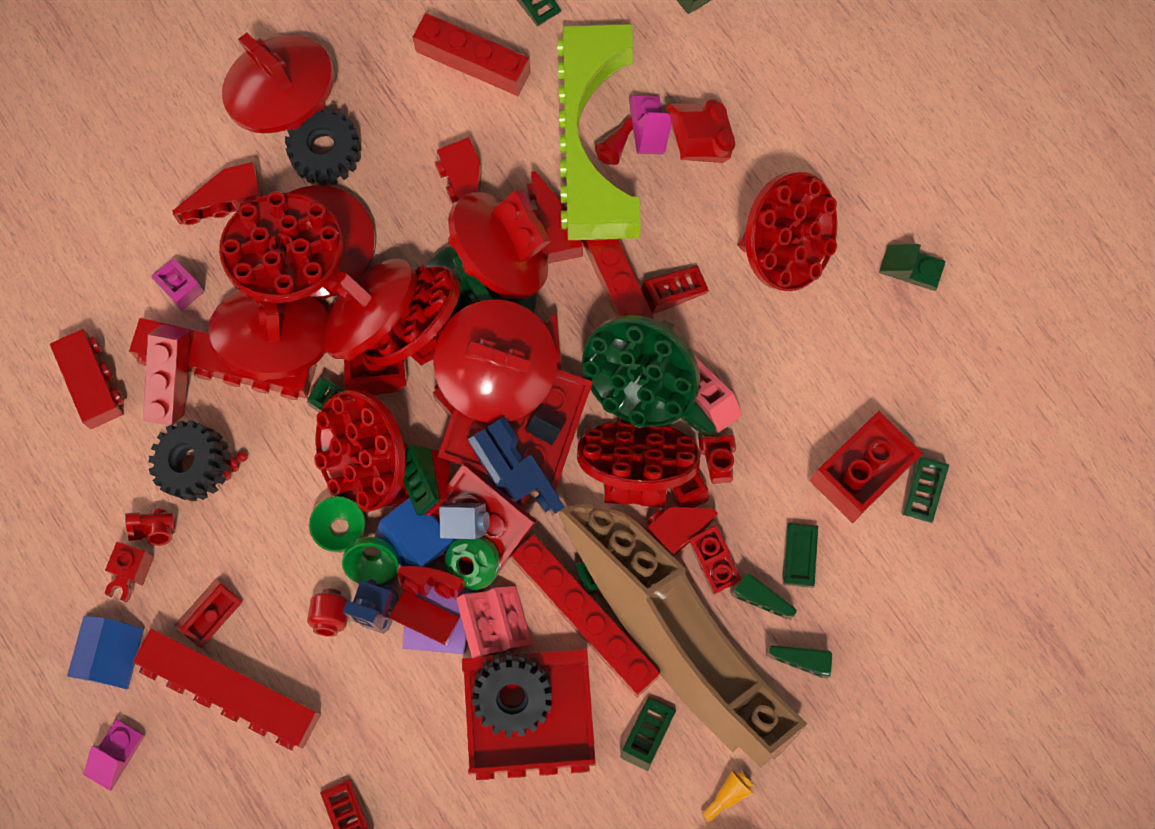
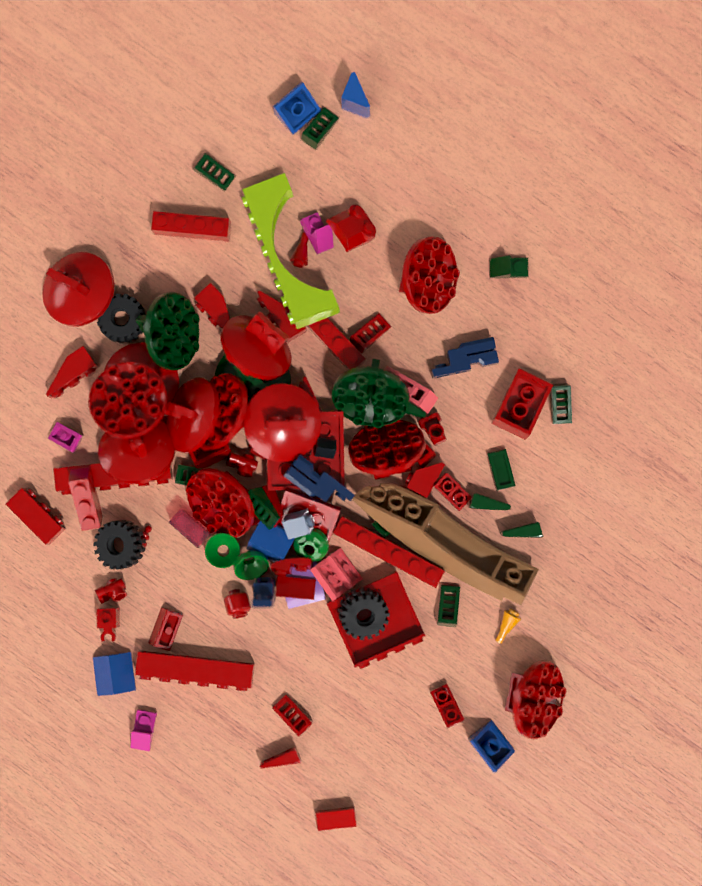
camera: 20 degrees left, 10 degrees up
(302, 474) = (189, 528): none -> clear pink brick
(385, 180) = (171, 331): none -> dark green bracket
(420, 411) = (245, 464): none -> red plate
(806, 367) = (463, 357): none -> dark blue plate

